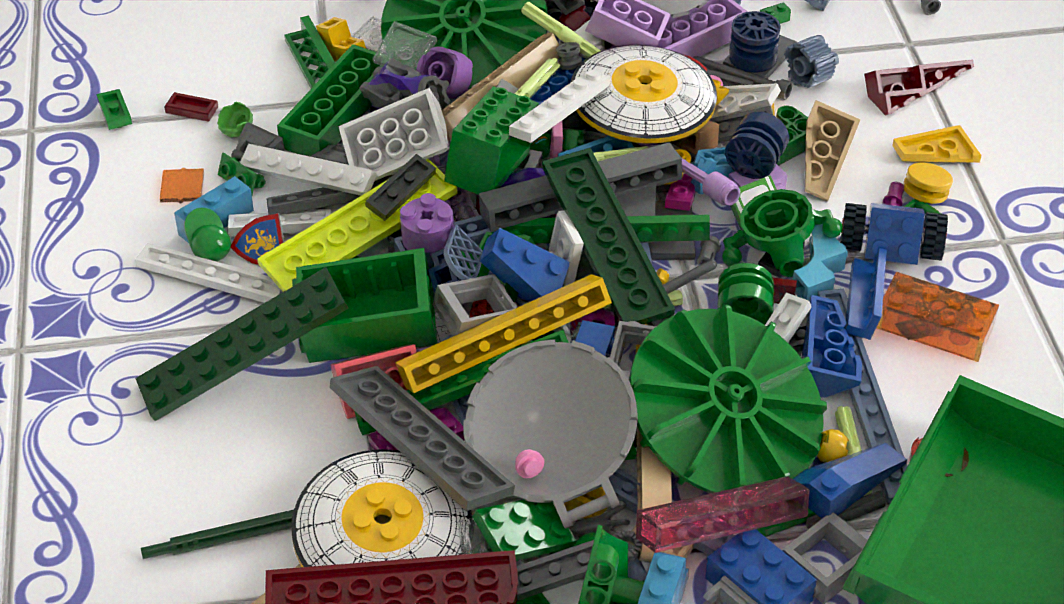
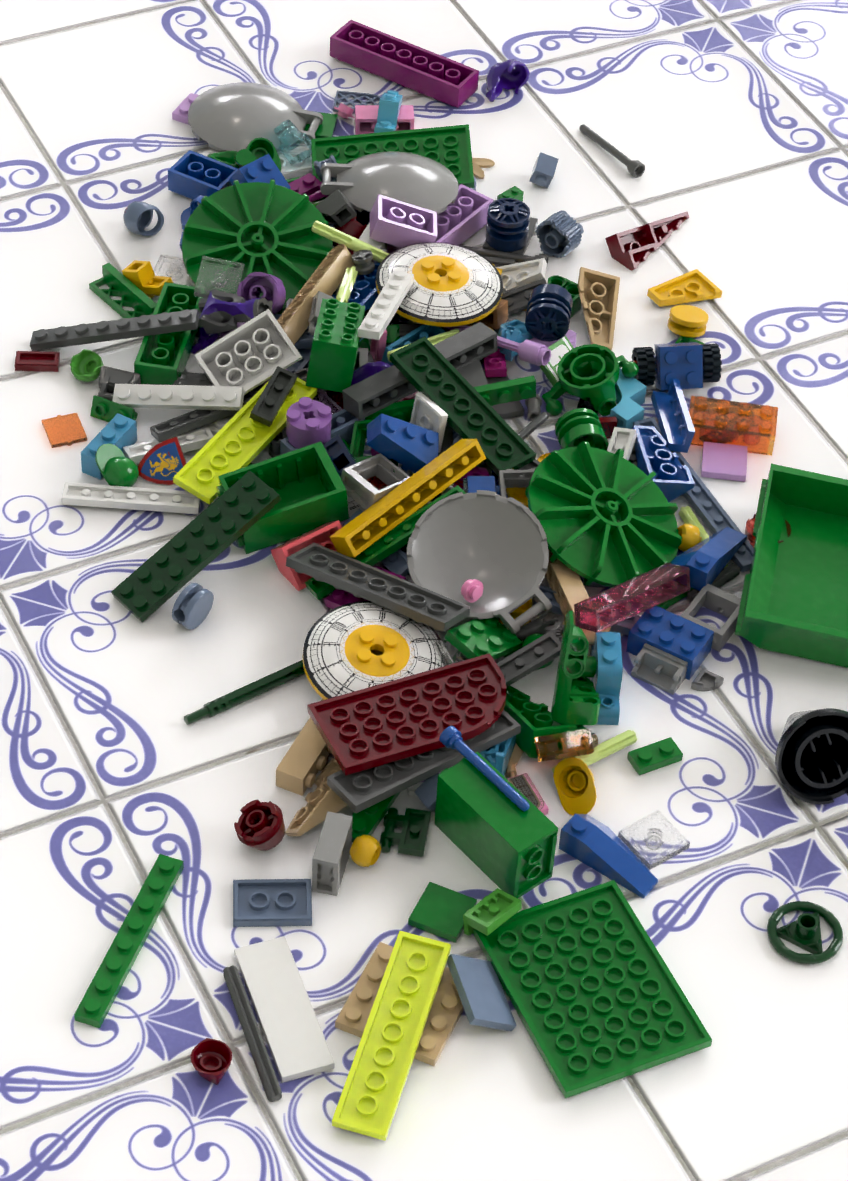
camera: 20 degrees left, 0 degrees up
(209, 414) = (192, 606): none -> sand blue head
(278, 86) = (115, 329): none -> dark grey plate
(473, 249) = (349, 441): sand blue window -> none
(894, 195) = (664, 334): magenta axle -> none
(914, 359) = (724, 461): none -> lavender tile

